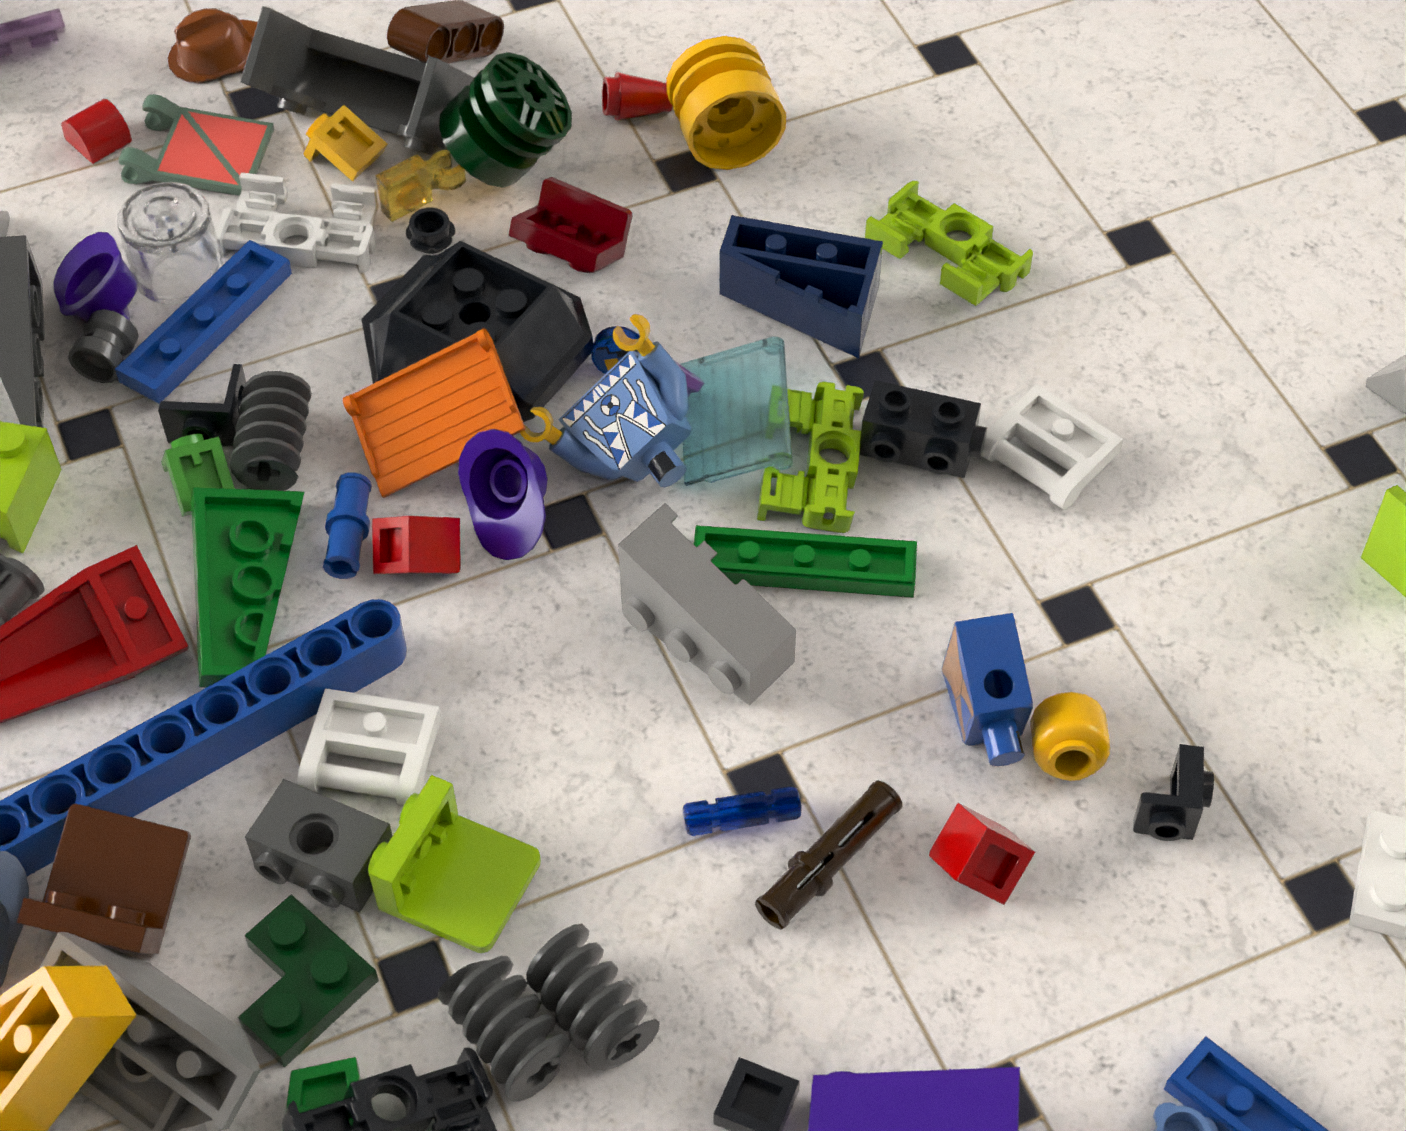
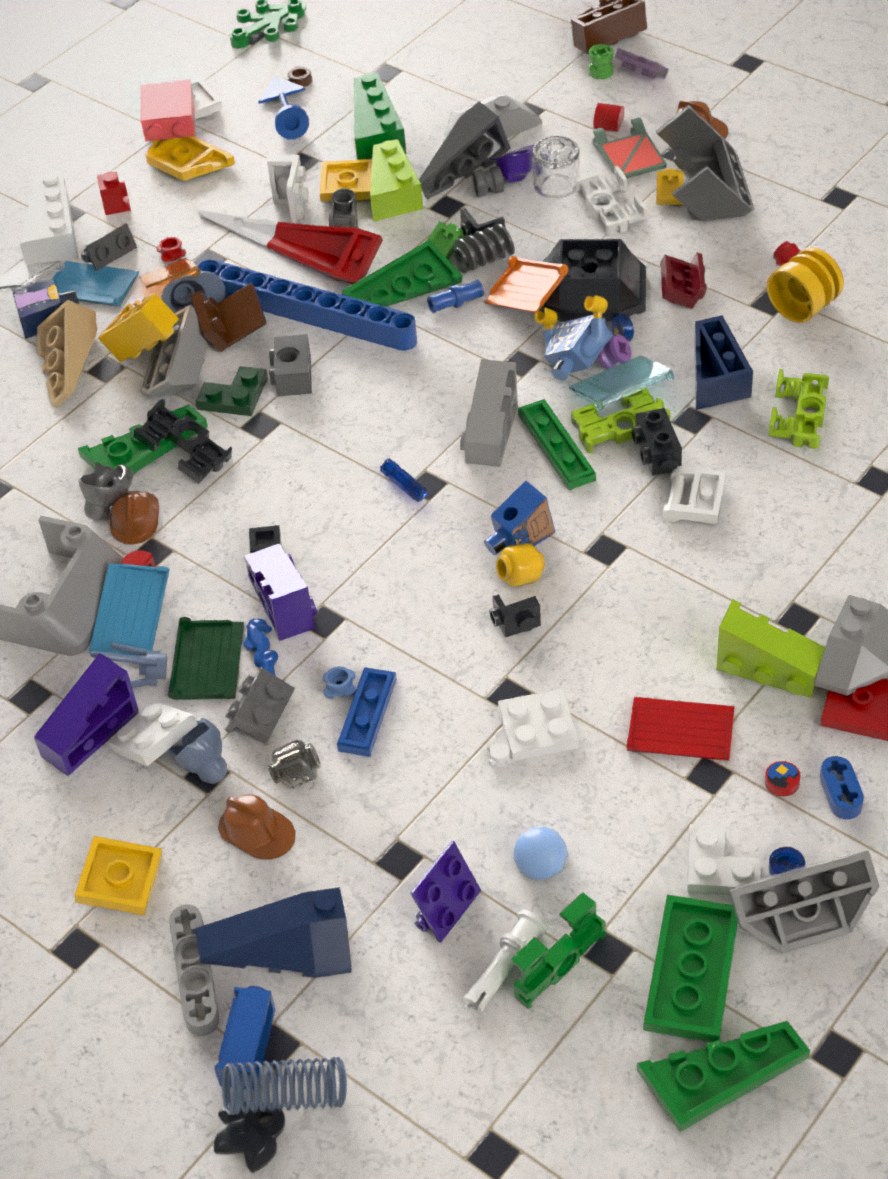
camera: 65 degrees right, 5 degrees down
(203, 321) = (529, 202): blue plate -> none
(370, 730) = (358, 352): white plate -> none
(411, 183) = (663, 220): clear yellow plate -> none
(416, 545) = (460, 320): red panel -> none
(430, 230) = (643, 239): black plate -> none
(445, 31) = (762, 178): reddish brown beam -> none
(450, 871) = (307, 402): lime bracket -> none
(503, 493) = (512, 331): dark purple piece -> none
(503, 1025) = (246, 453): dark grey piece -> none
(505, 120) = (703, 224): dark green wheel -> none
(587, 1003) = (275, 469): dark grey piece -> none
(784, 897) = (389, 513): dark brown pin -> none
(981, 853) = (434, 560): red panel -> none

